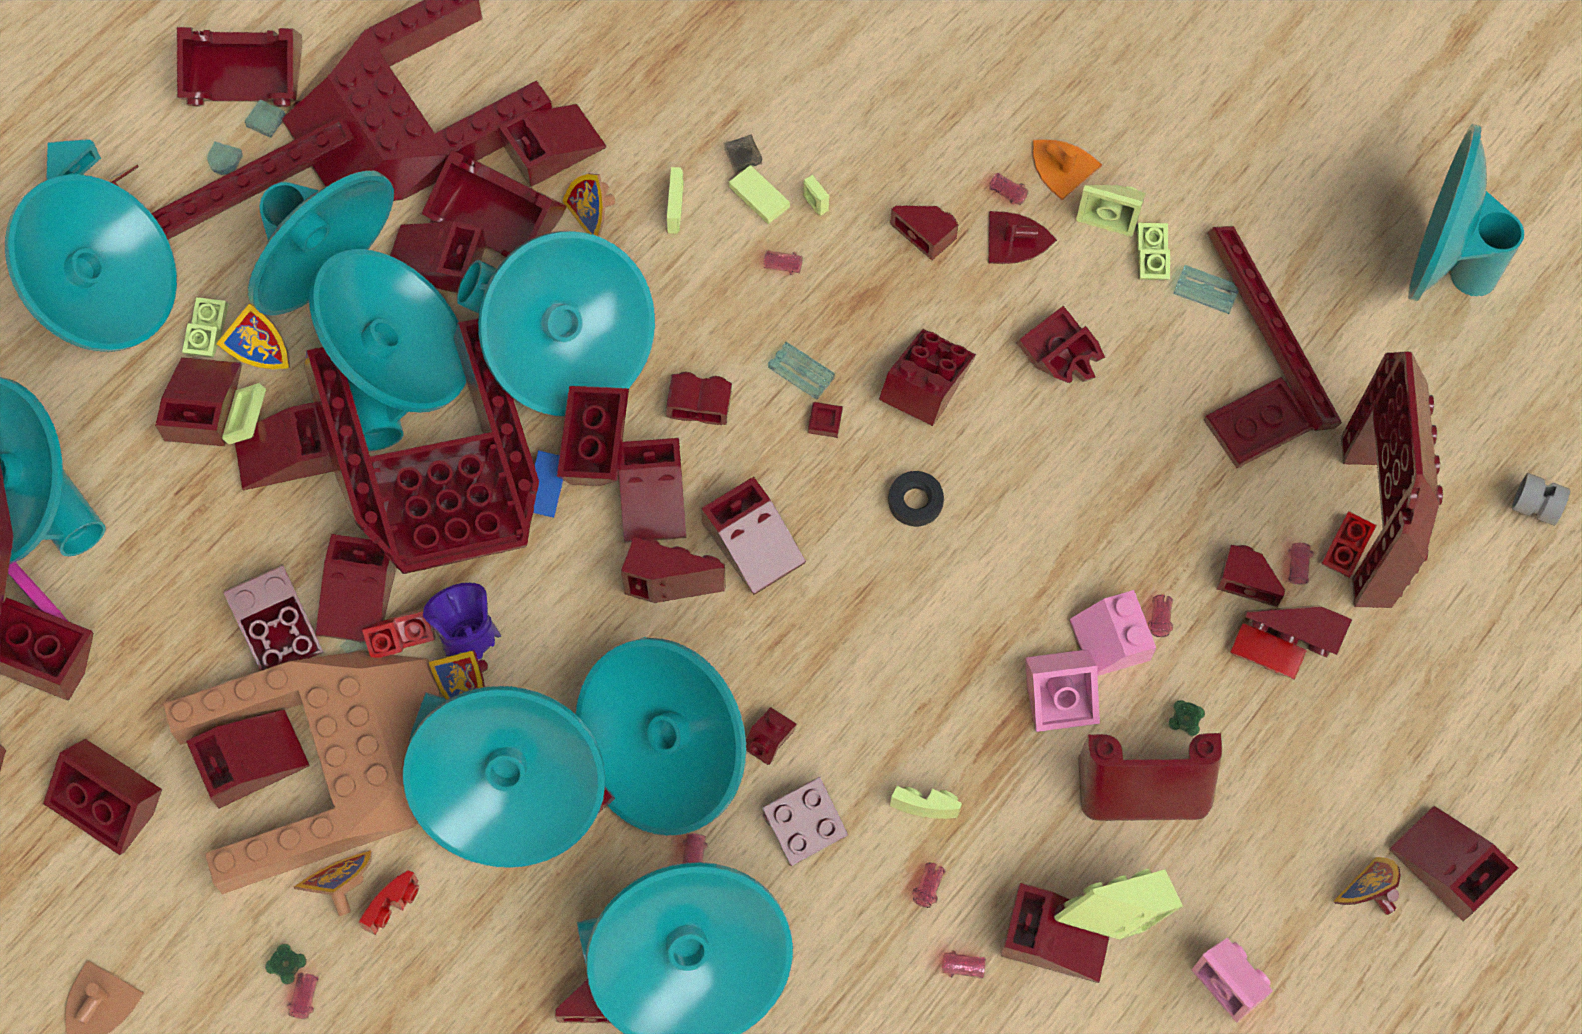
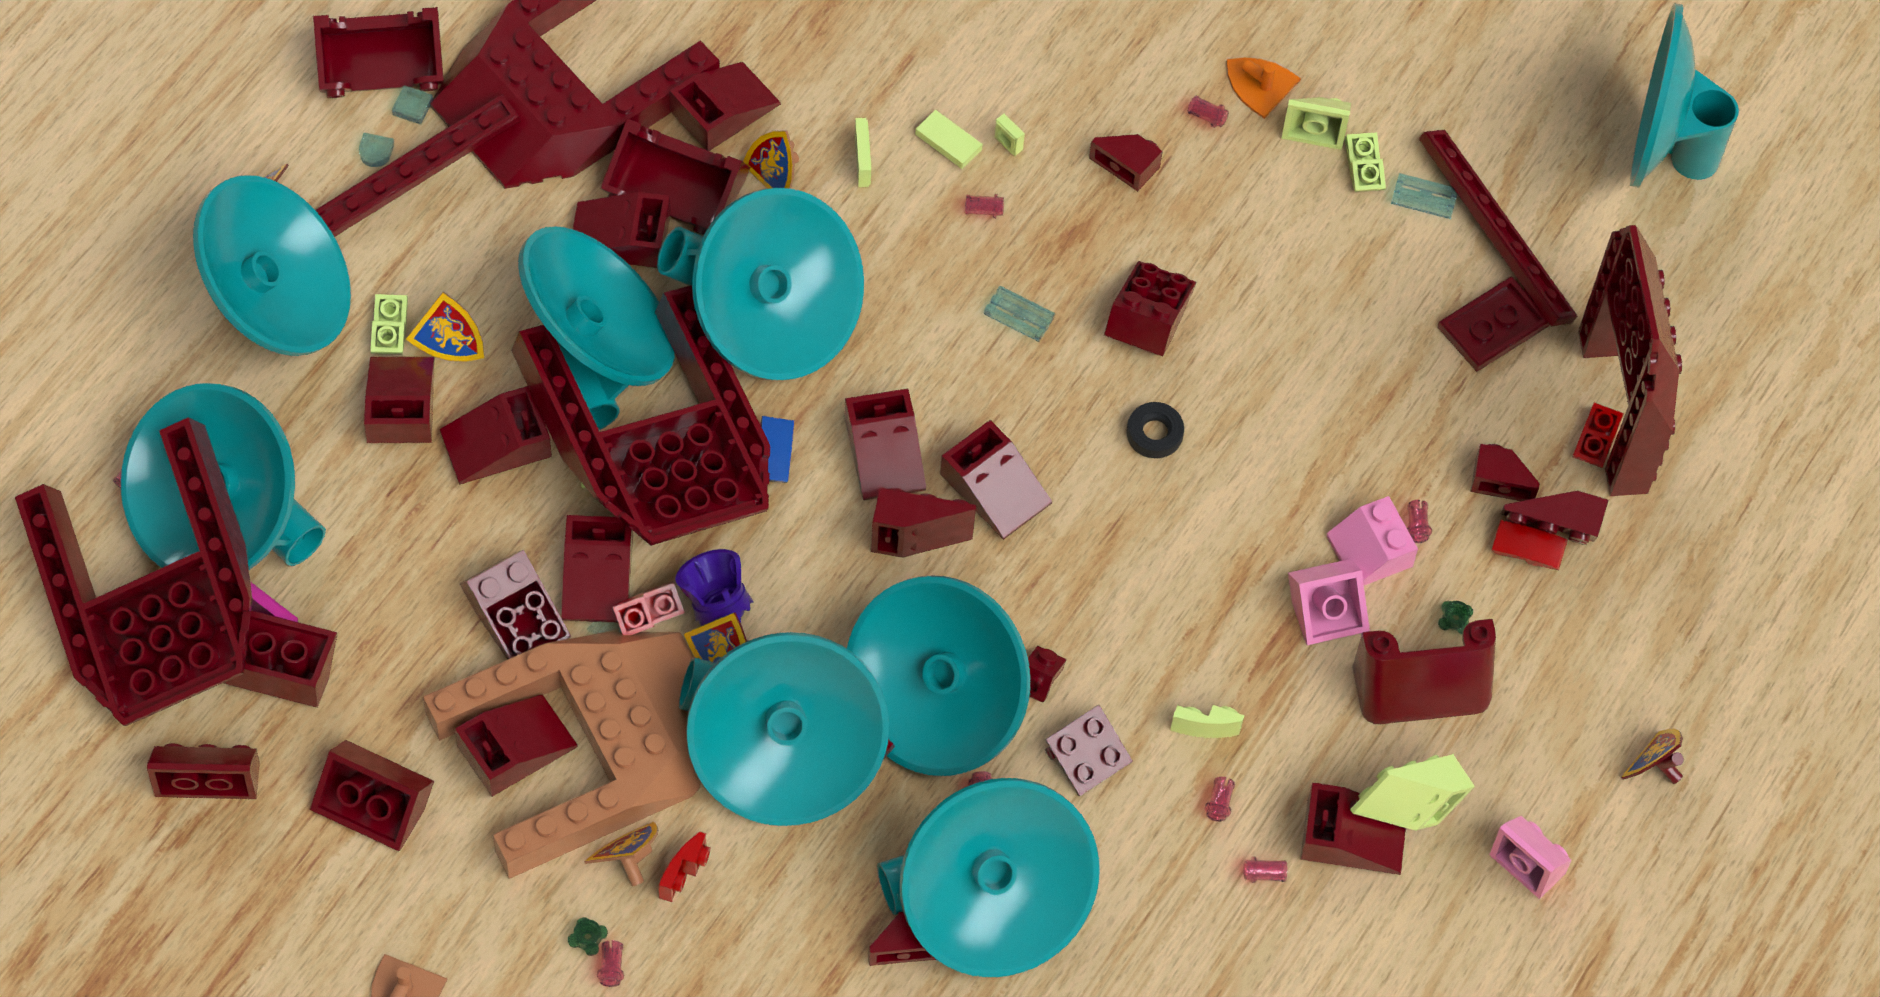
camera: 10 degrees left, 5 degrees down
(71, 157) = (214, 165): teal slope -> none
(244, 413) = (448, 406): yellowish green tile -> none
(308, 229) = (506, 217): teal dish -> none
(592, 435) = (820, 394): dark red slope -> none
(699, 399) = (919, 350): dark red brick -> none
(743, 153) = (926, 98): clear smoke plate -> none
(825, 419) = (1051, 360): dark red tile -> none
(1016, 238) = (1221, 161): dark red shield -> none
(1062, 347) = (1284, 266): dark red plate -> none
(1299, 563) = (1551, 457): clear pink pin -> none
(1453, 861) = (1734, 726): dark red slope -> none
(1541, 499) = (1784, 372): light grey wheel -> none

